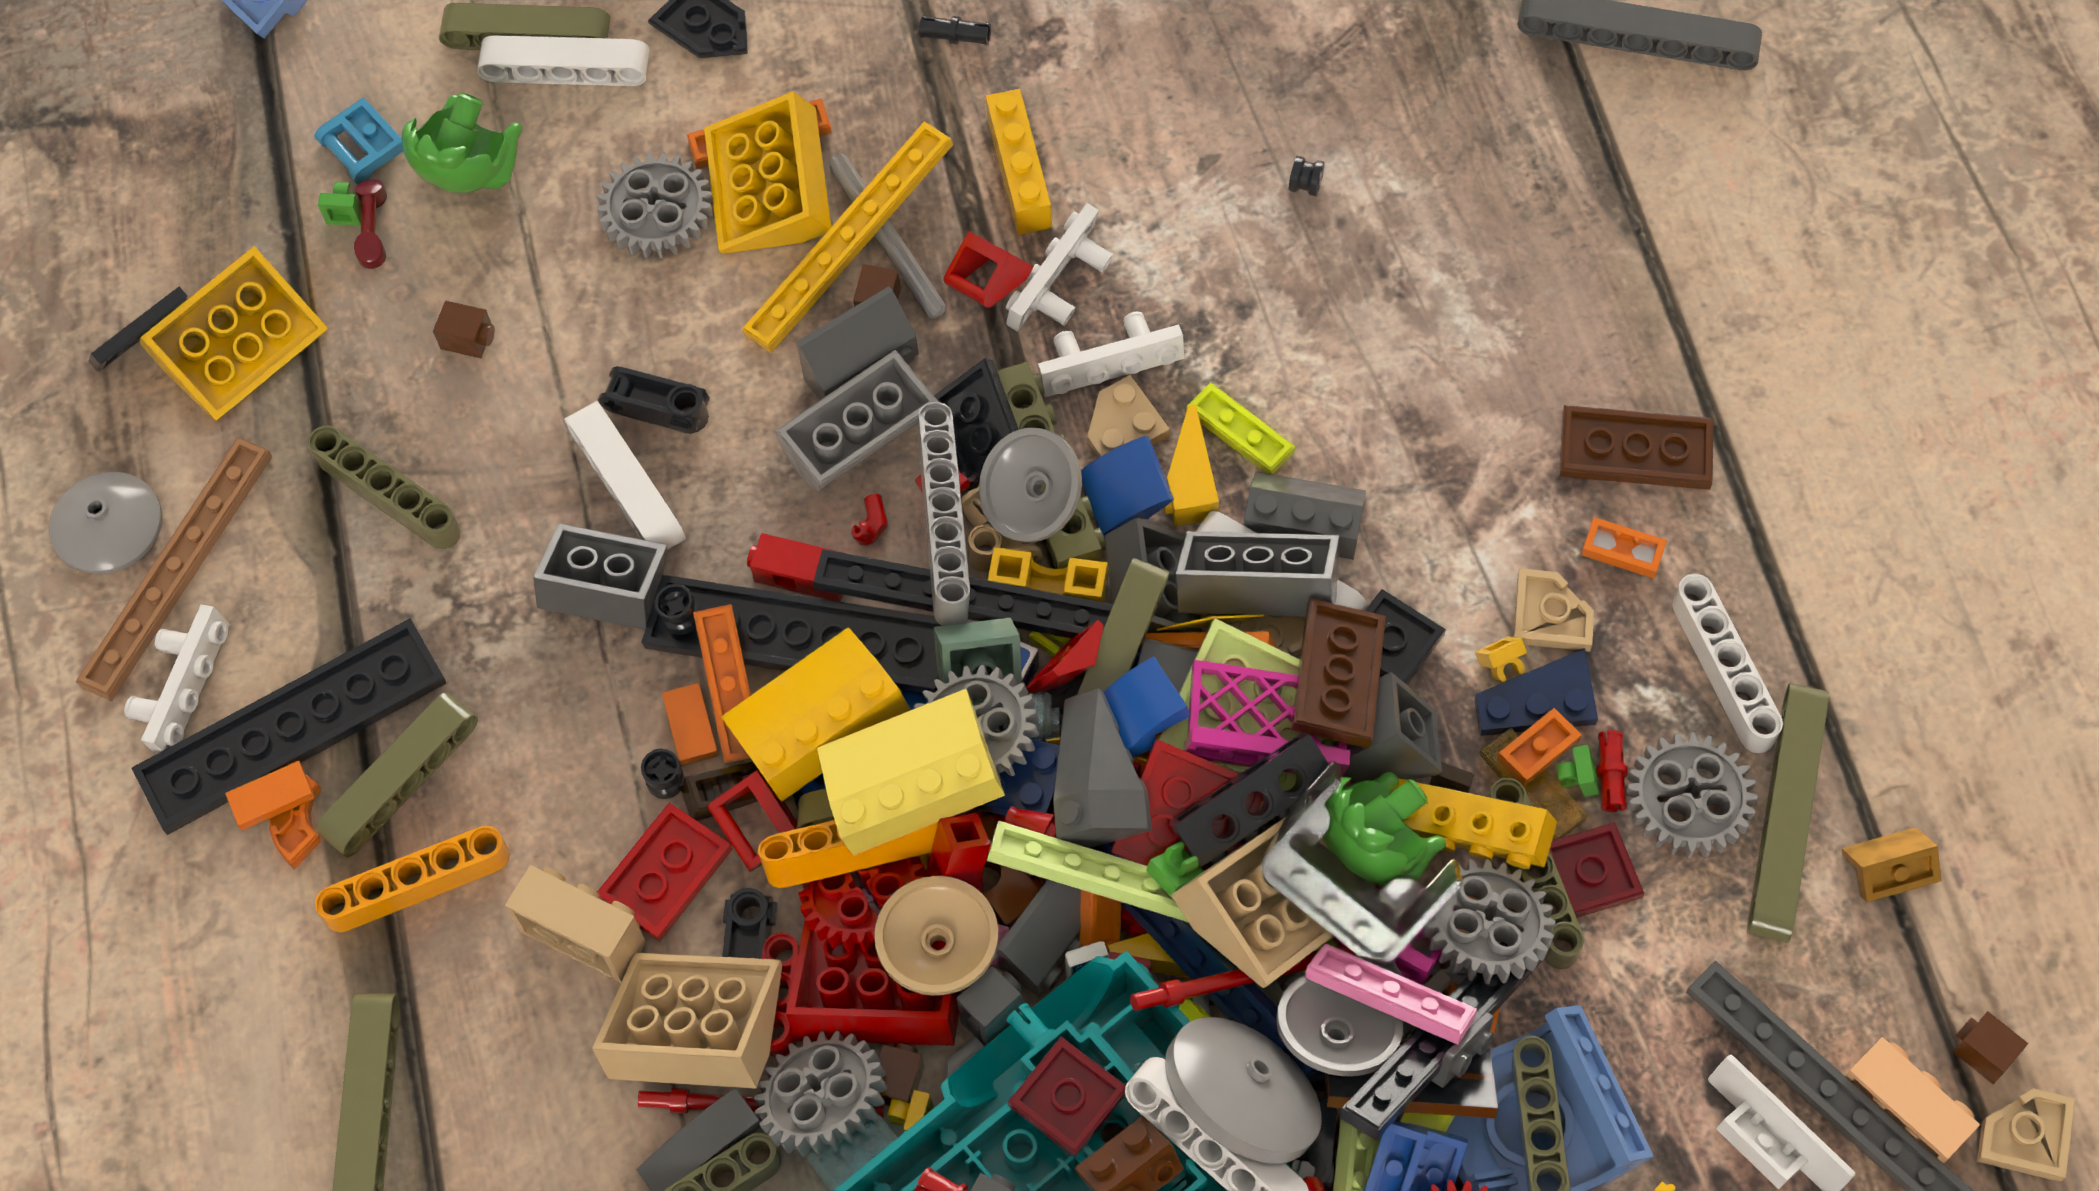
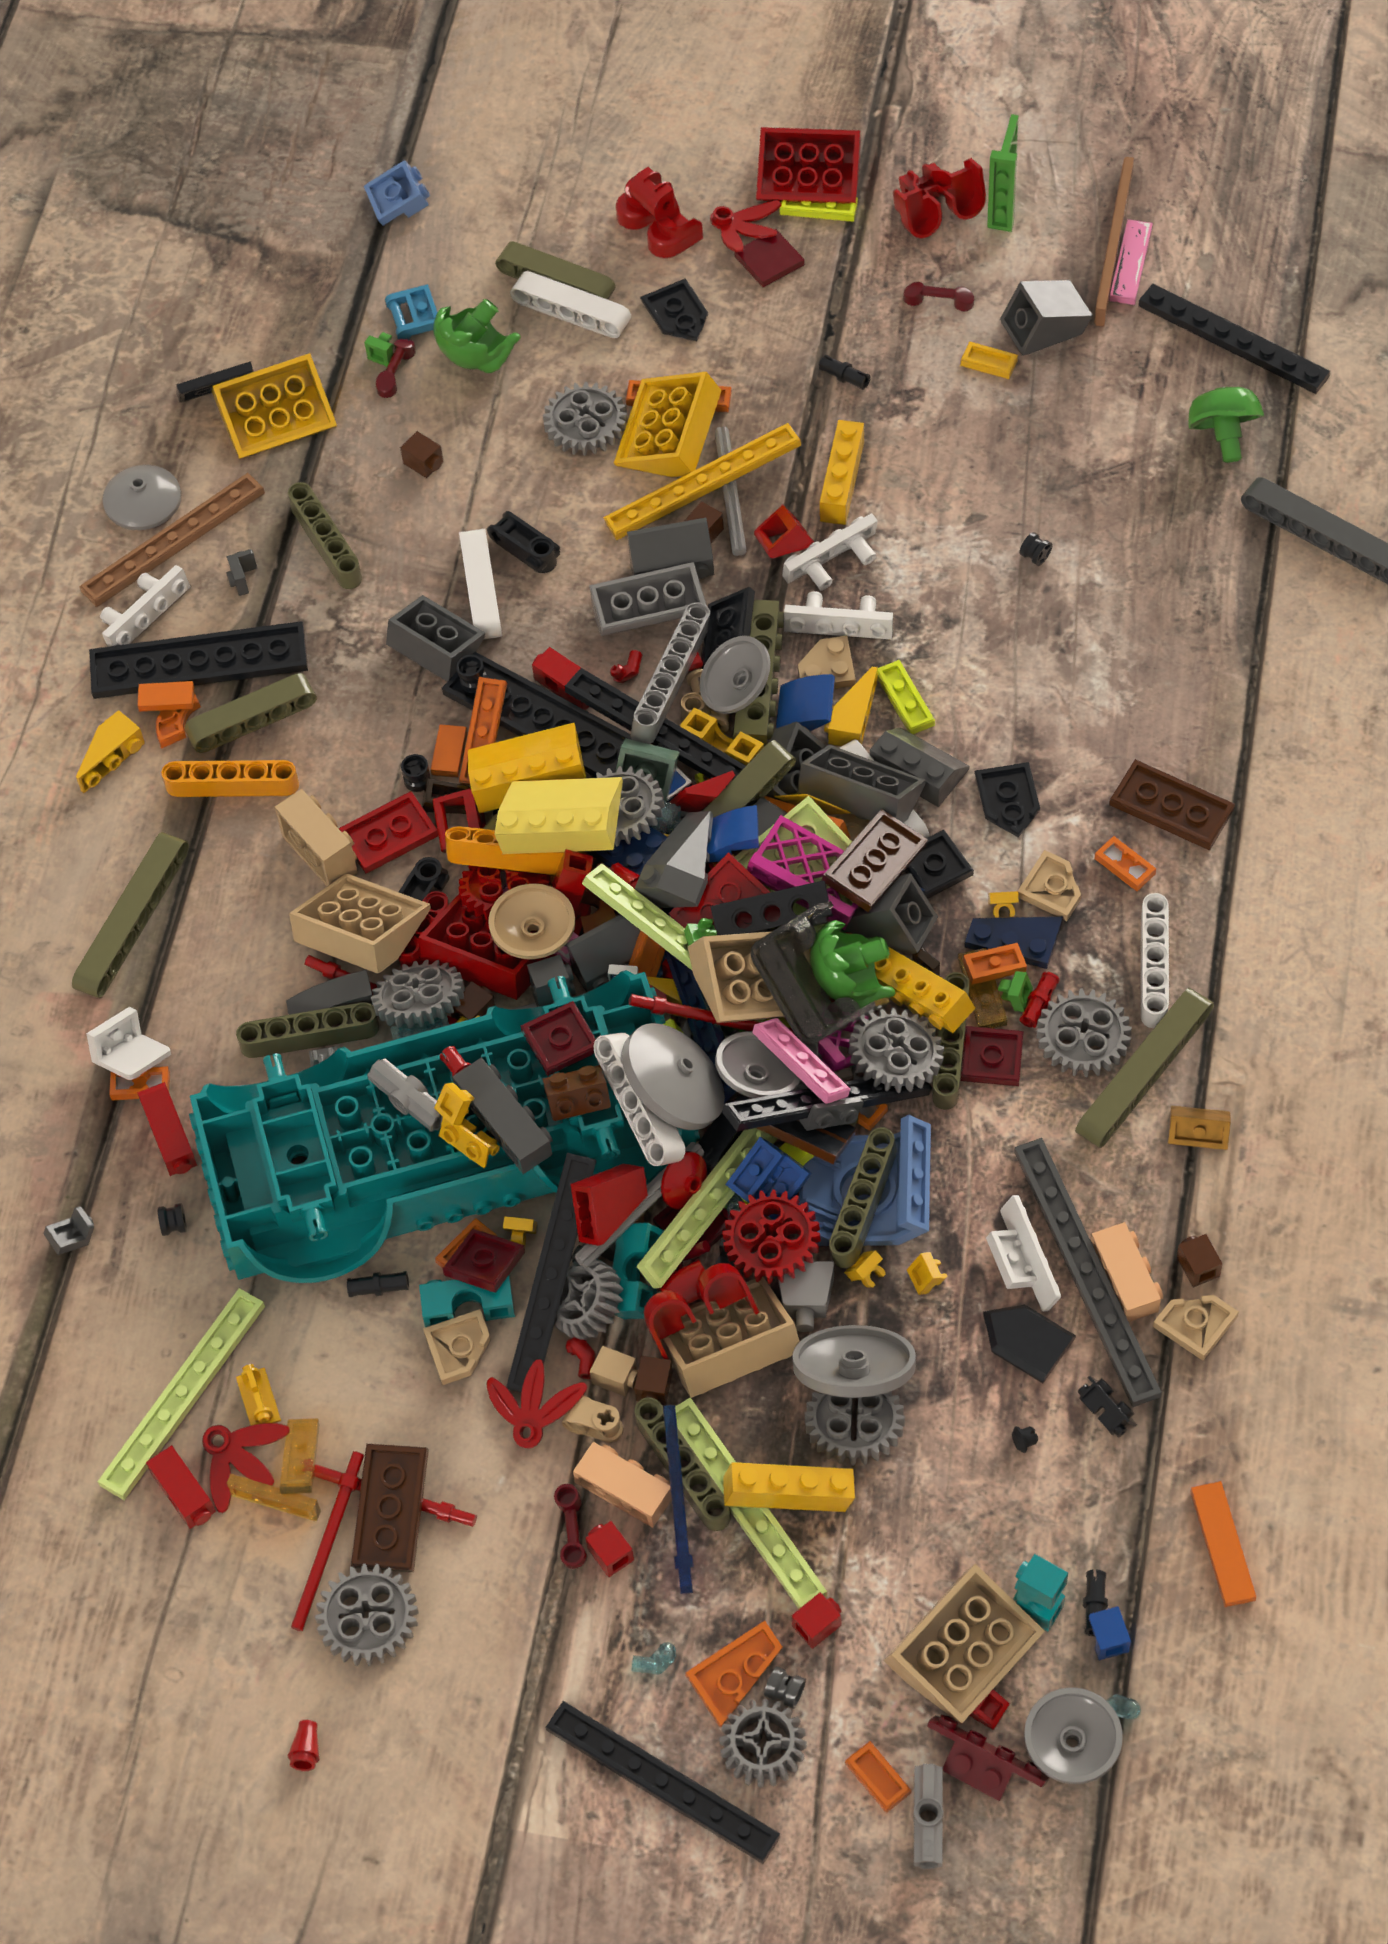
camera: 25 degrees right, 5 degrees down
(223, 901) = (110, 746): none -> yellow slope
(284, 571) = (239, 564): none -> dark grey bracket
(1435, 513) = (1008, 796): none -> black tile

